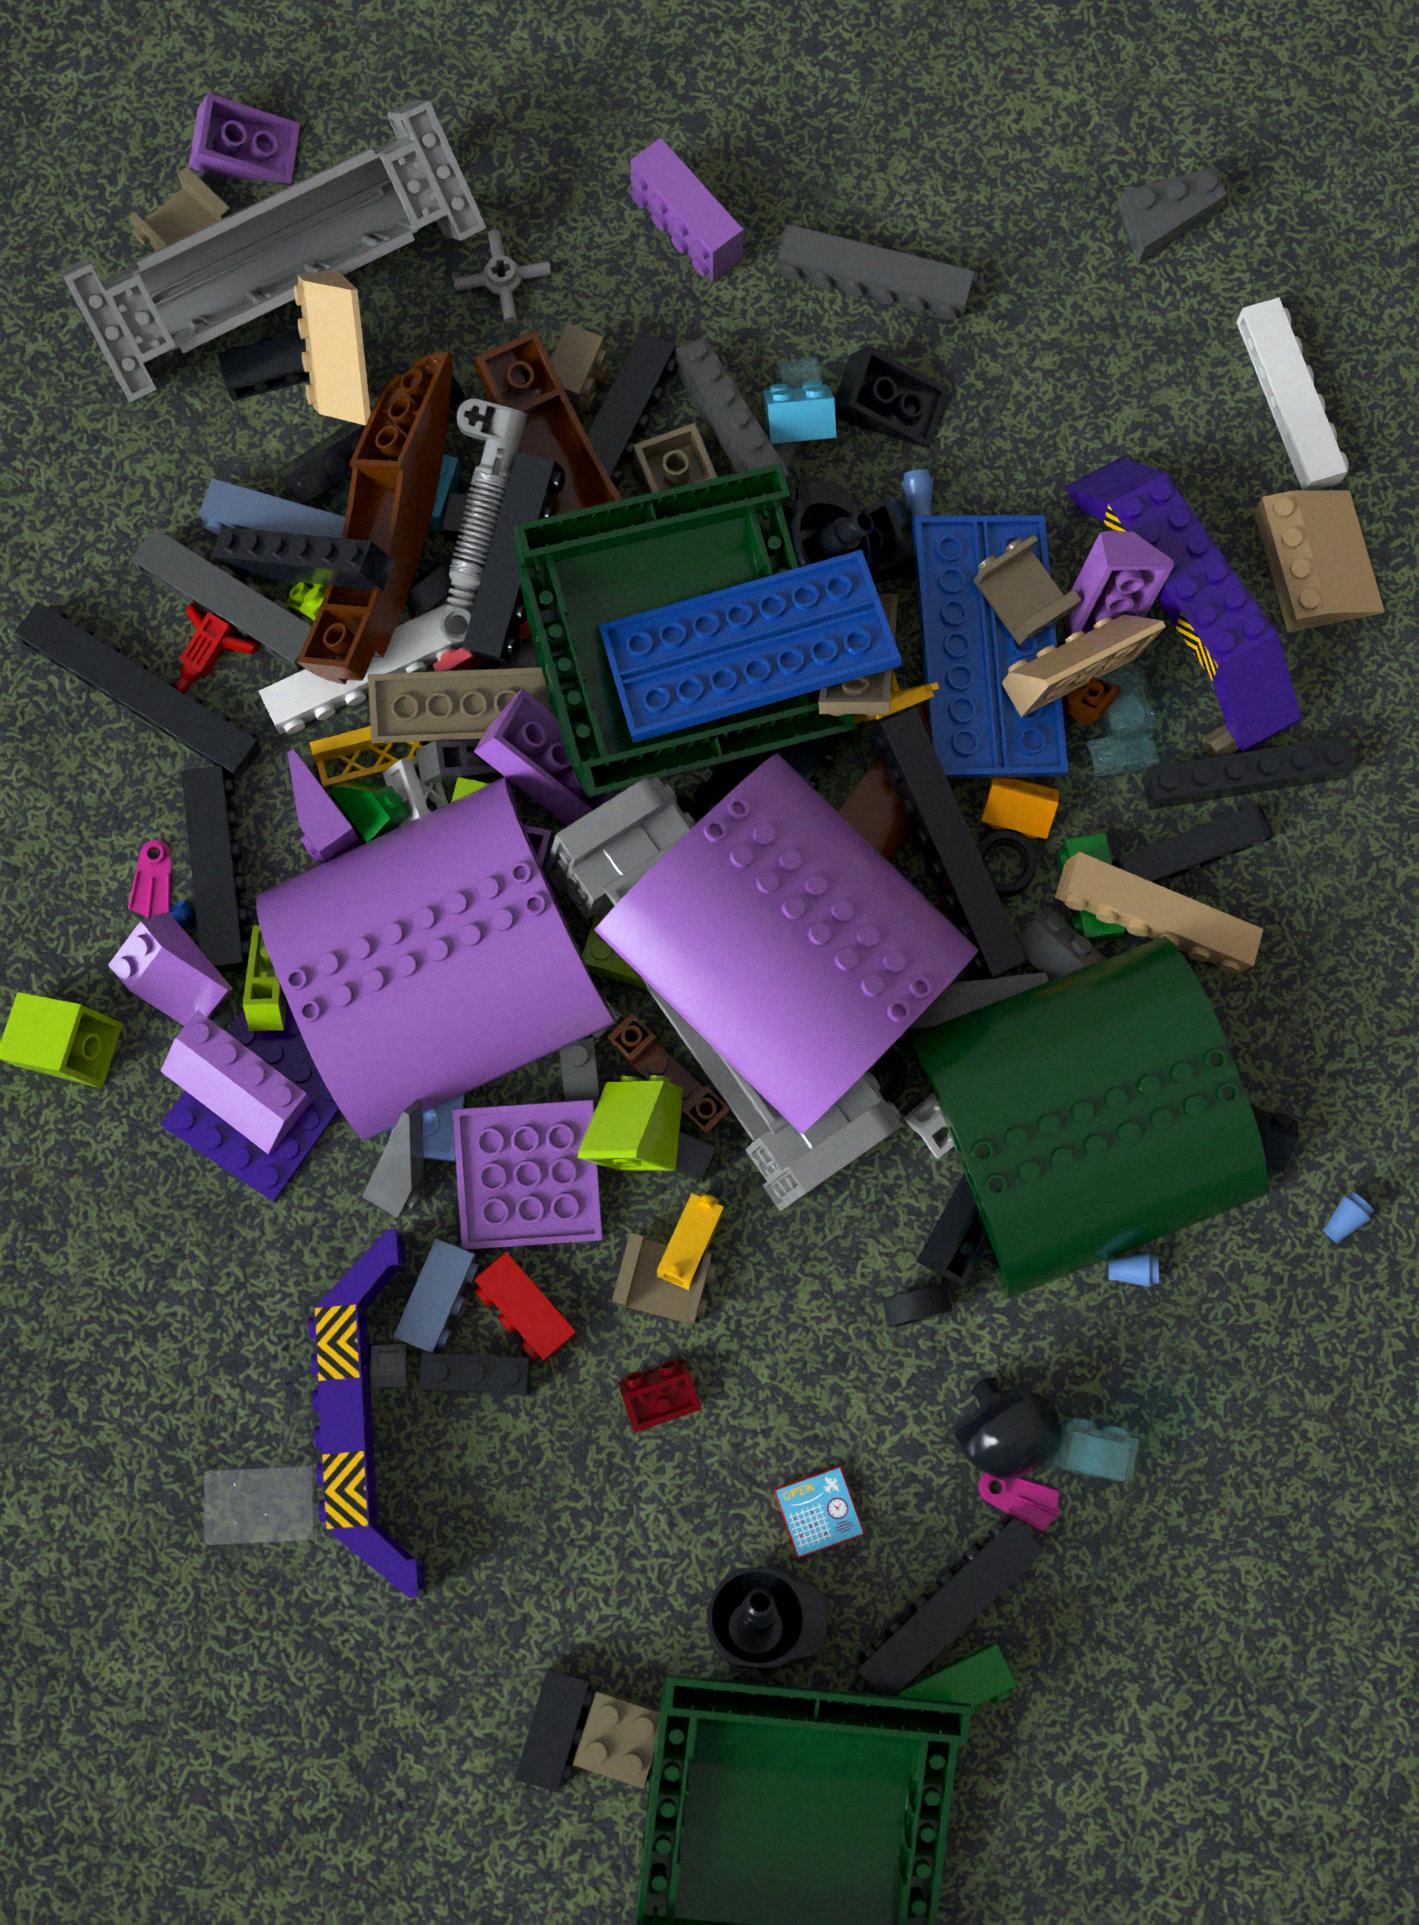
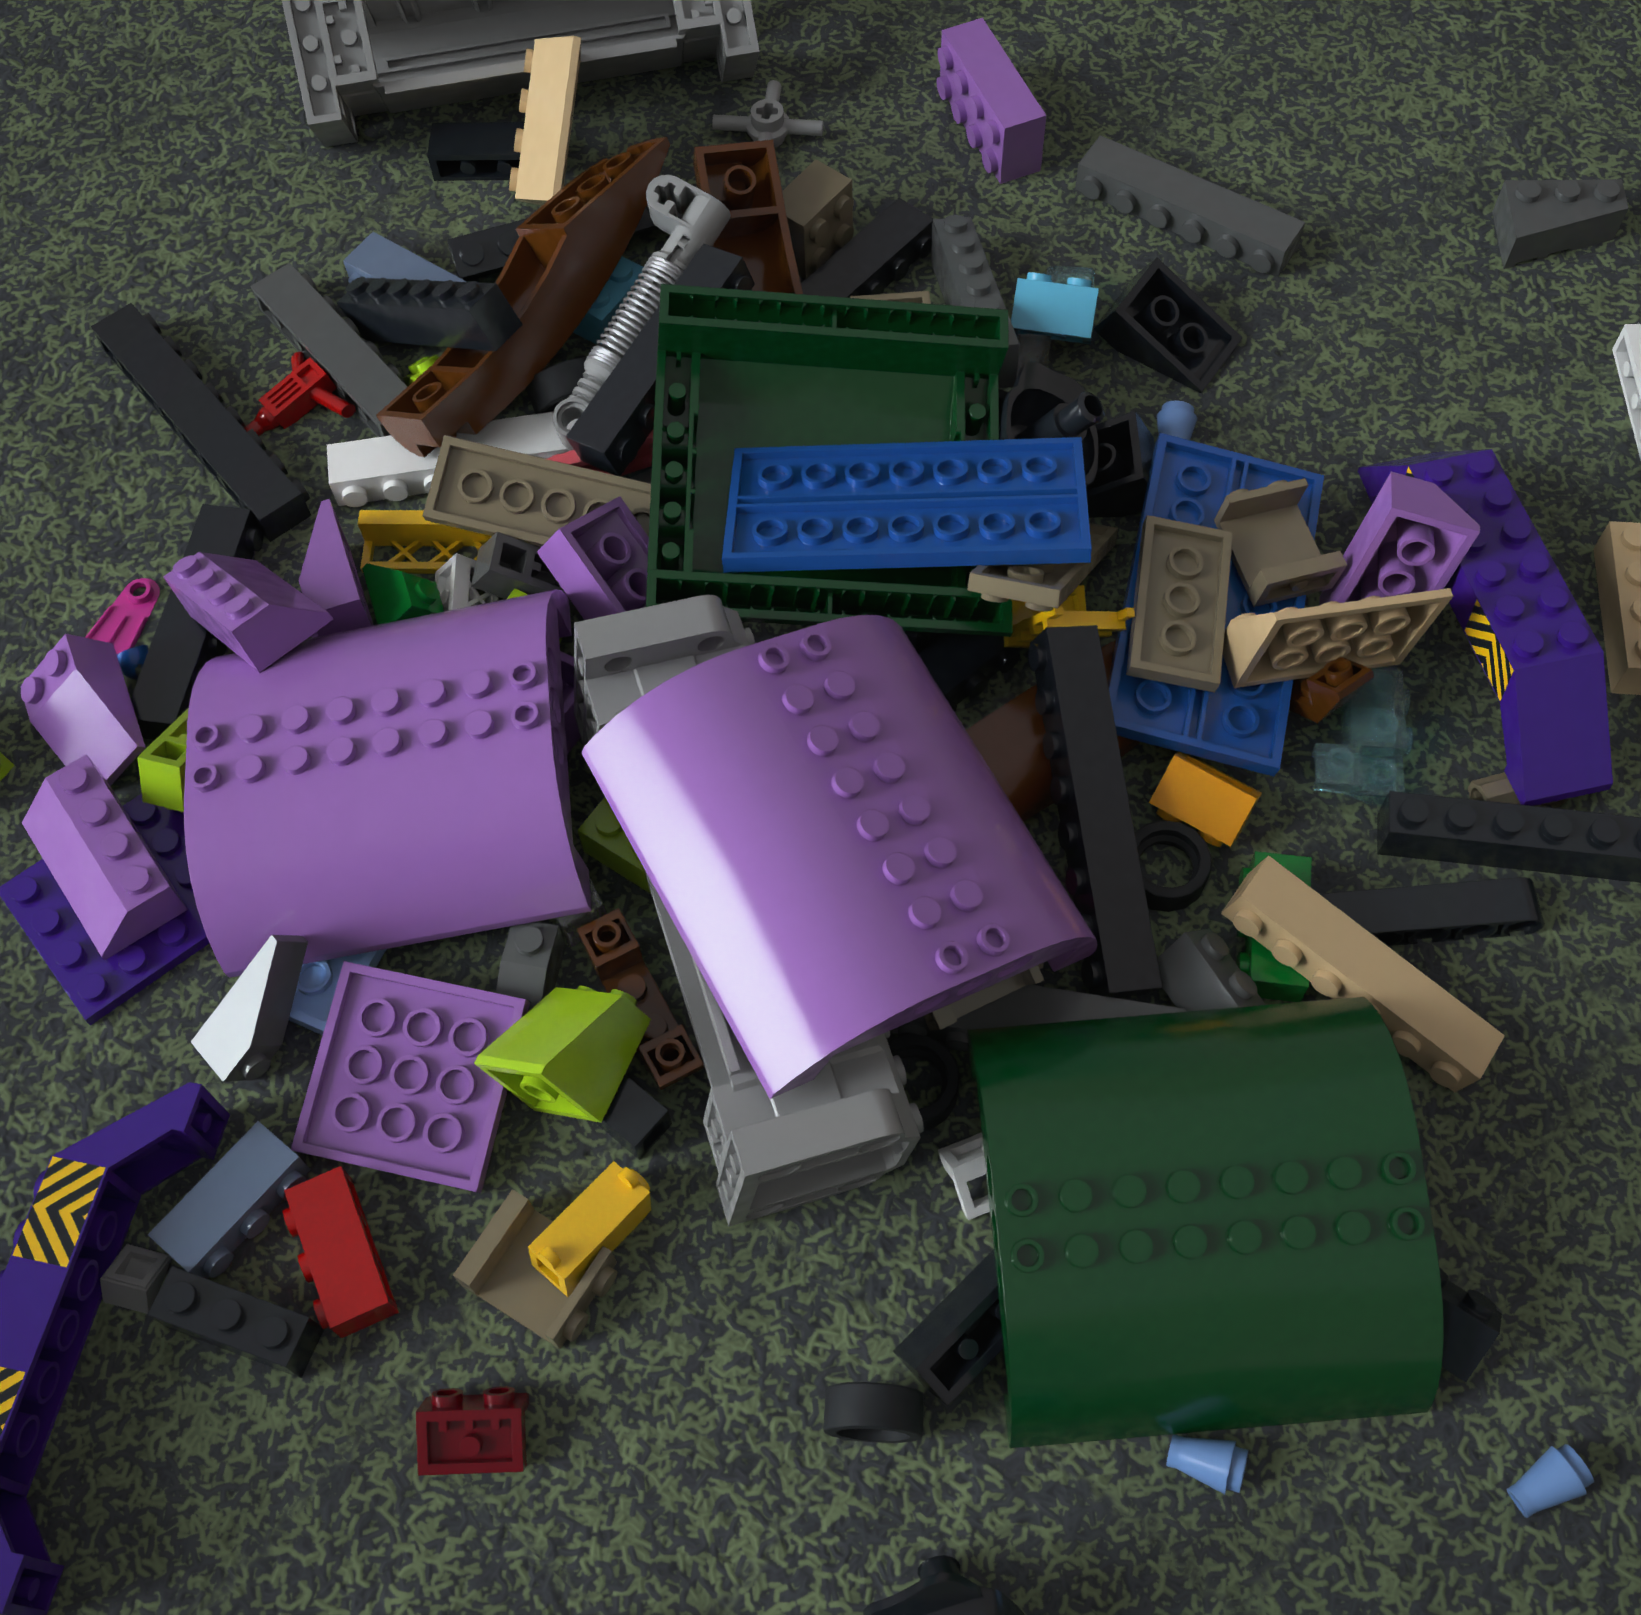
camera: 20 degrees right, 15 degrees down
(271, 859) = (245, 606): none -> medium lavender slope
(967, 663) = (1180, 604): none -> dark tan plate

